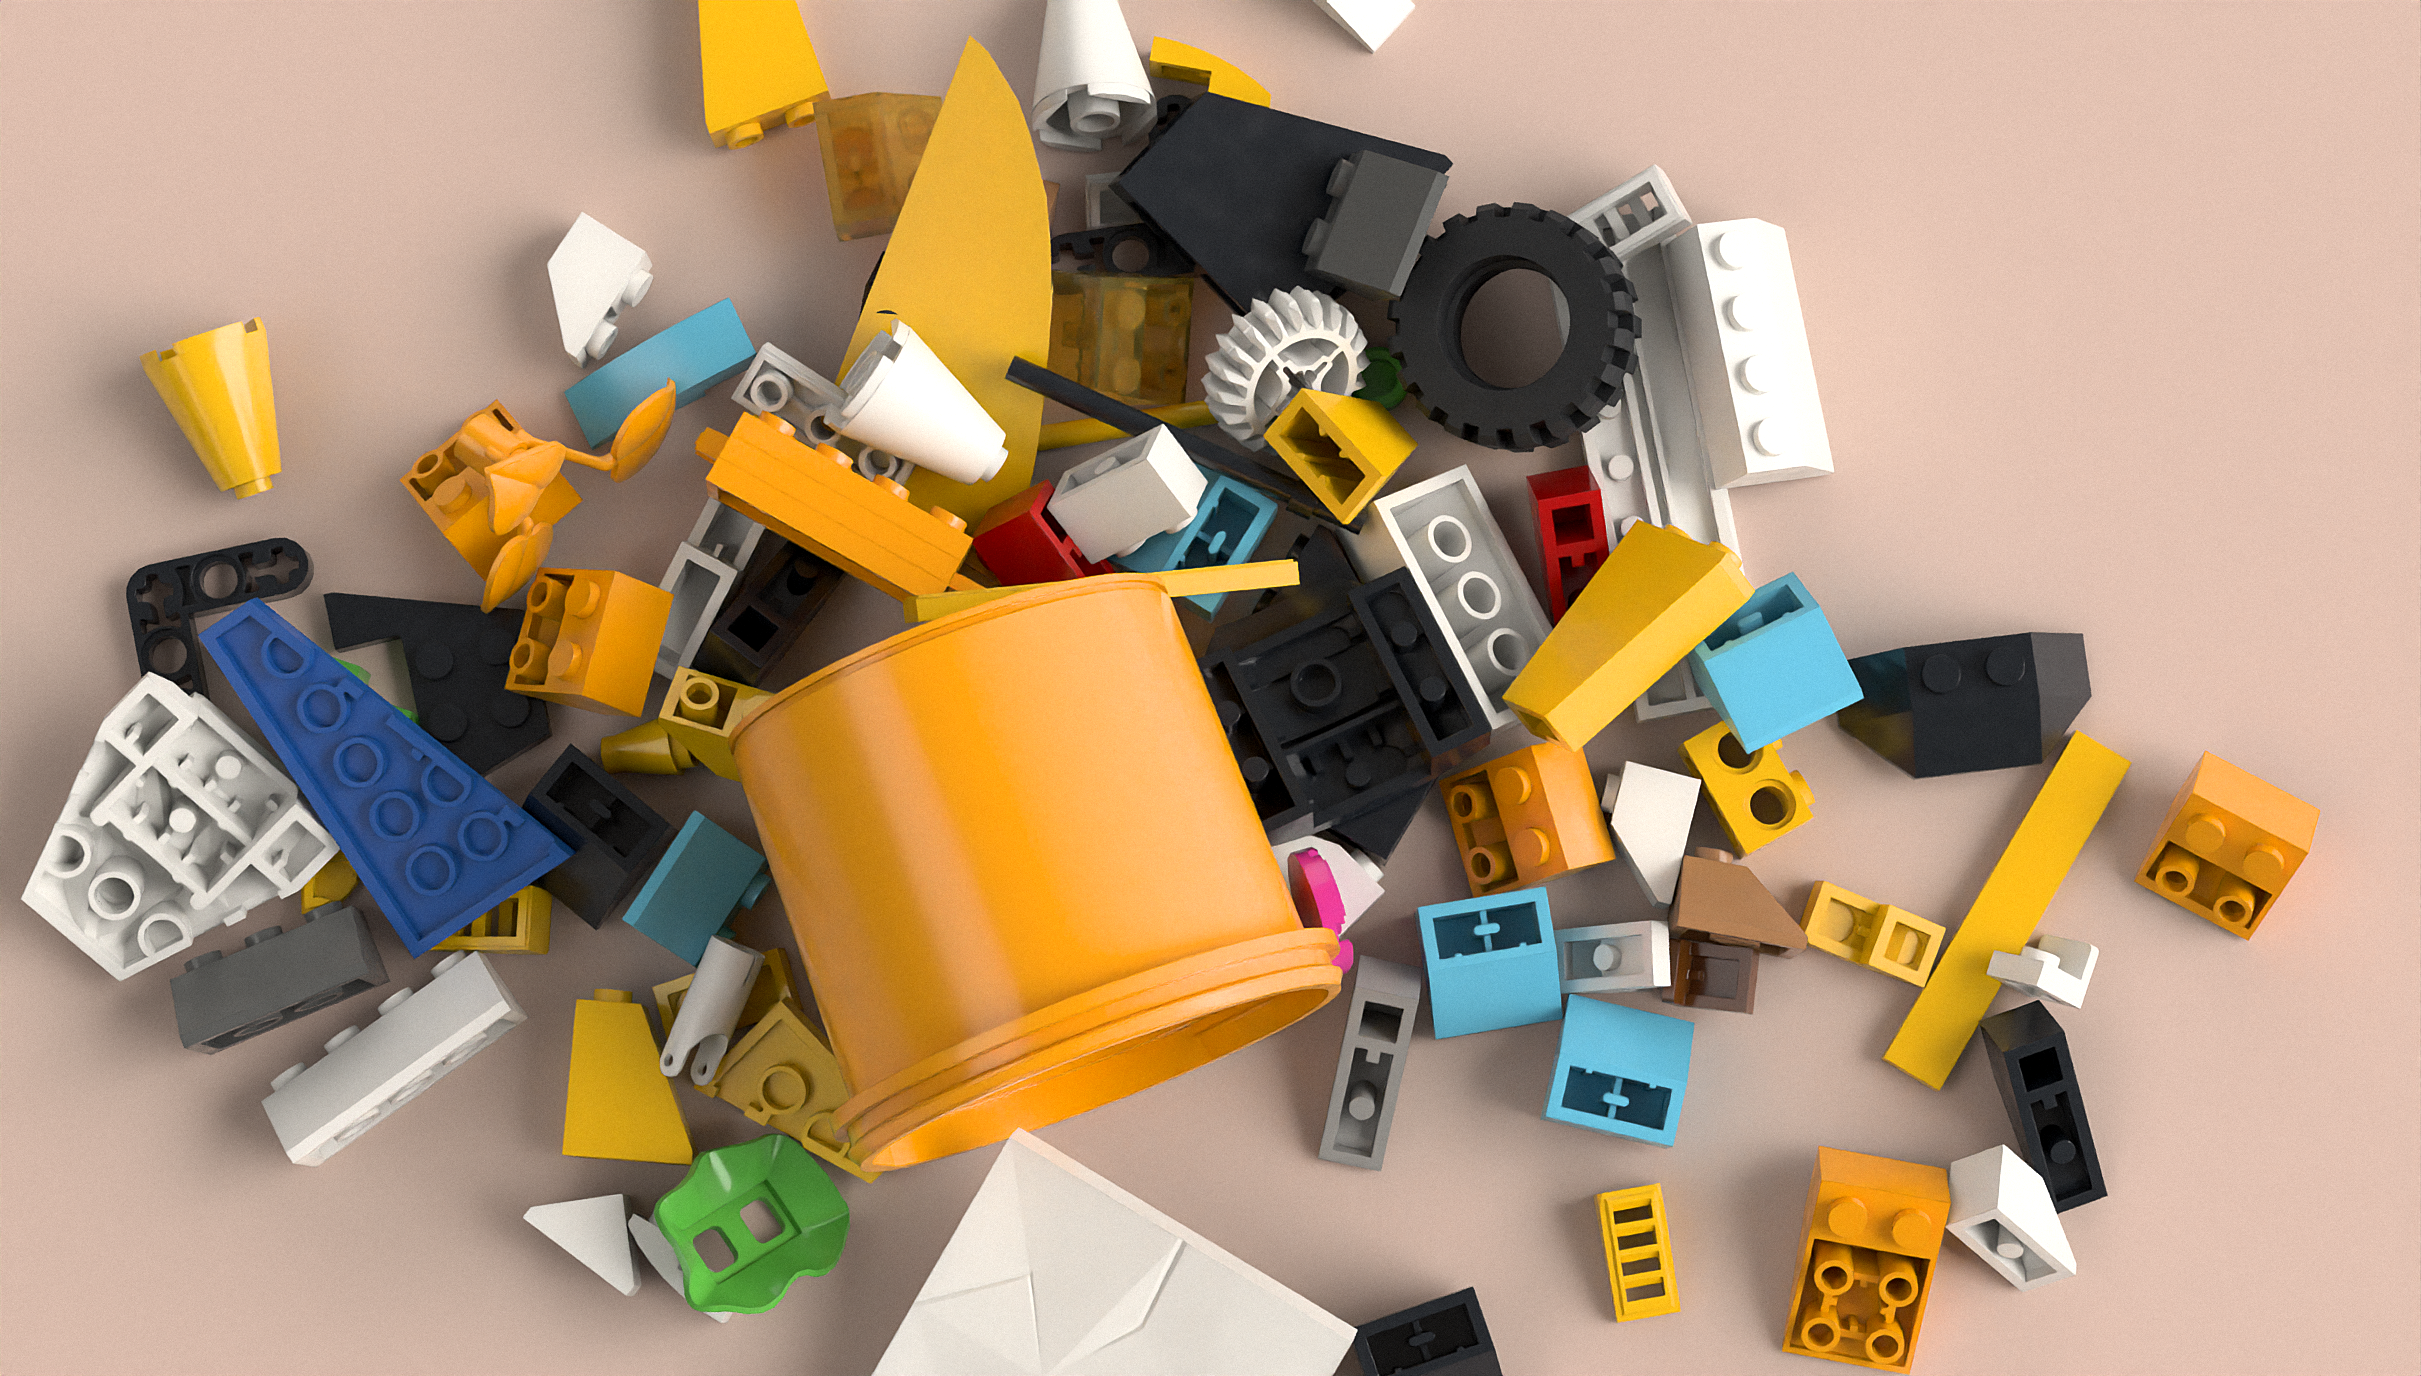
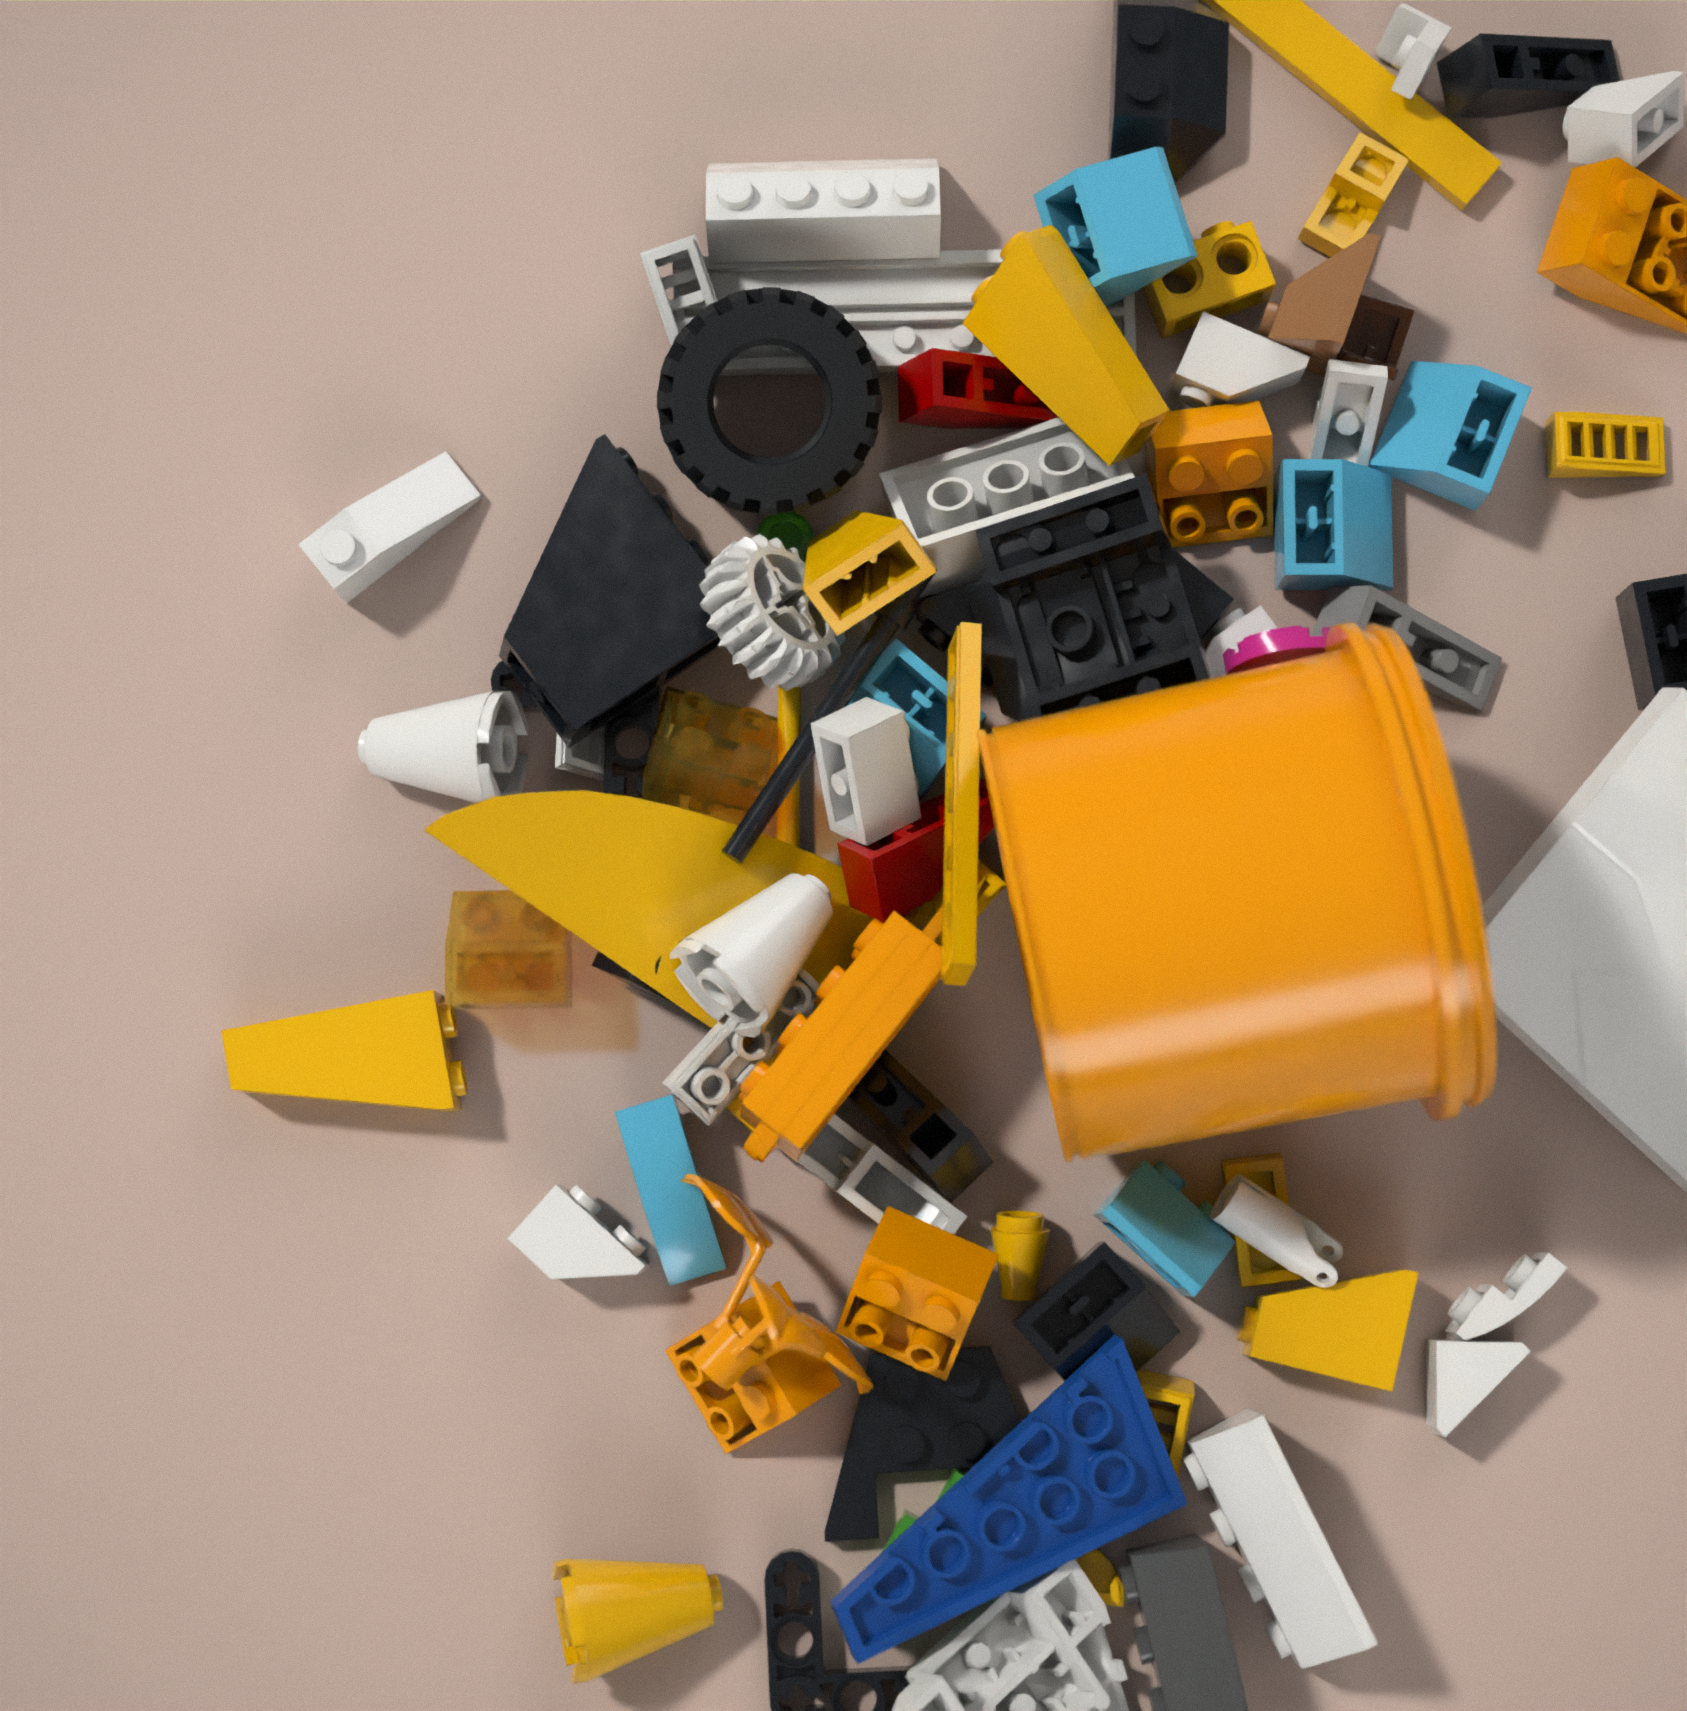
camera: 75 degrees left, 0 degrees up
(704, 711) = (1014, 1174): yellow slope -> none
(711, 1196) = (1521, 1215): bright green piece -> none
(787, 1079) = (1352, 1164): yellow wing -> none
(1195, 66) = (483, 632): yellow slope -> none
(1373, 224) = (657, 502): dark grey slope -> none

